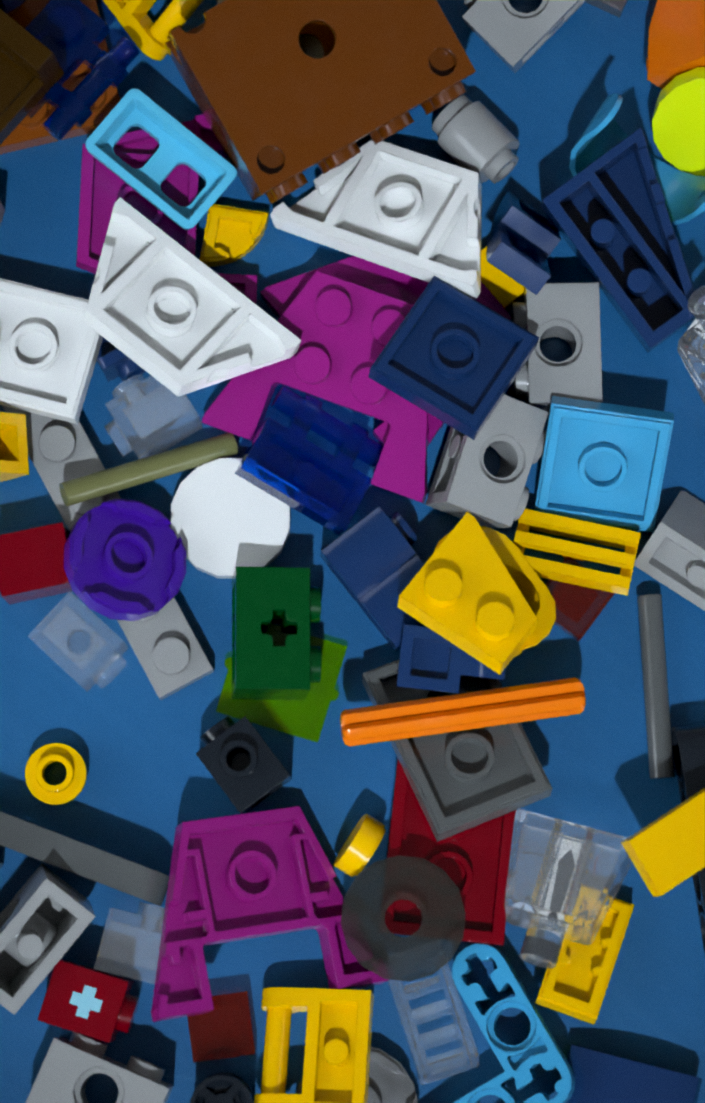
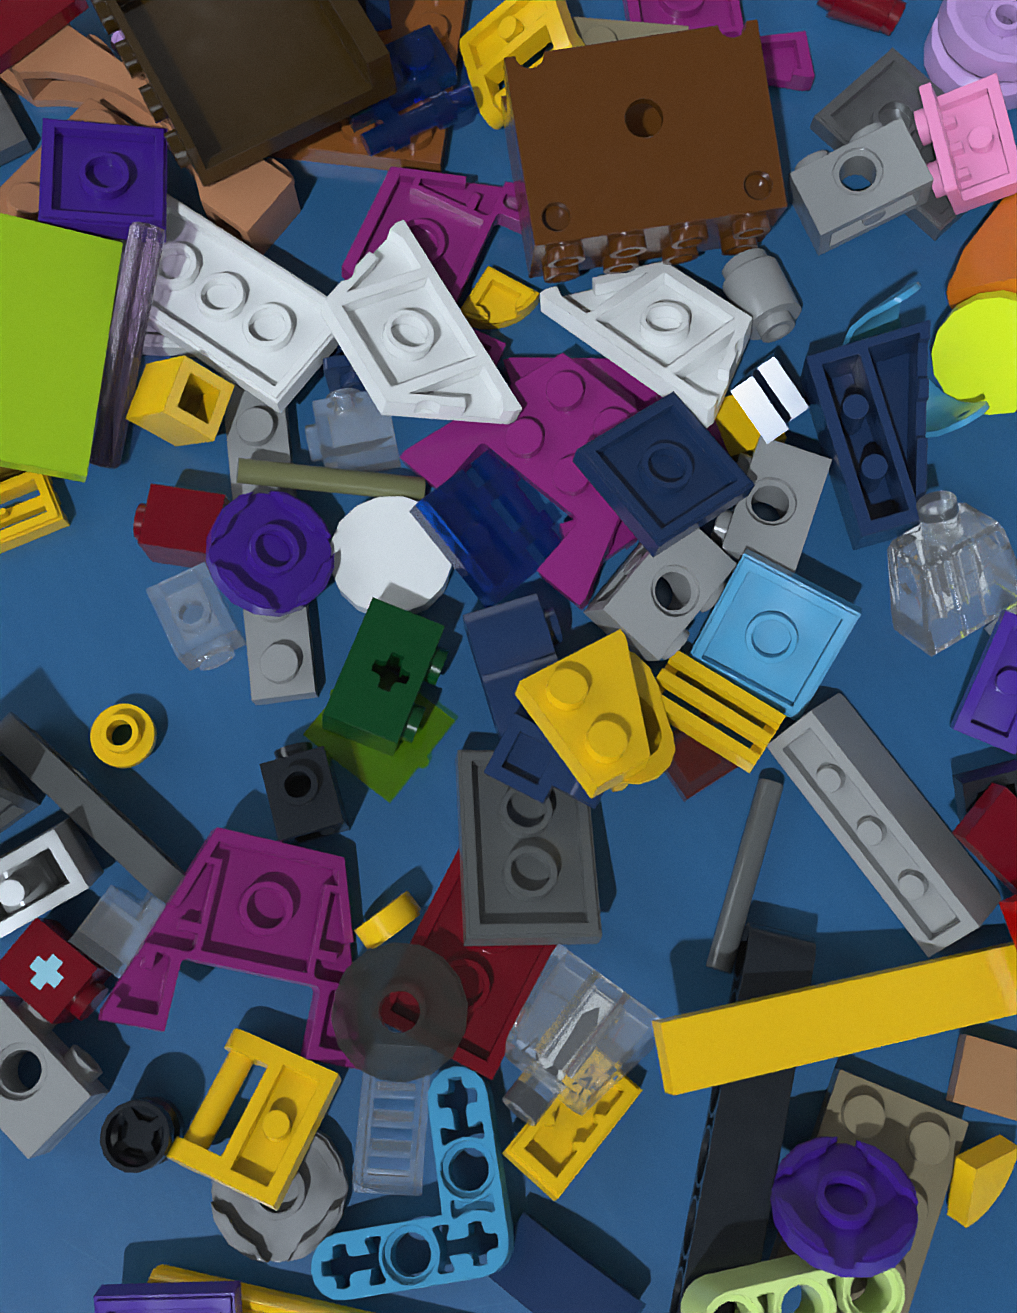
camera: 20 degrees right, 5 degrees down
(176, 147) = (477, 197): medium azure piece -> none
(223, 1031) = (180, 1053): clear red tile -> none
(462, 711) = (540, 823): orange axle -> none

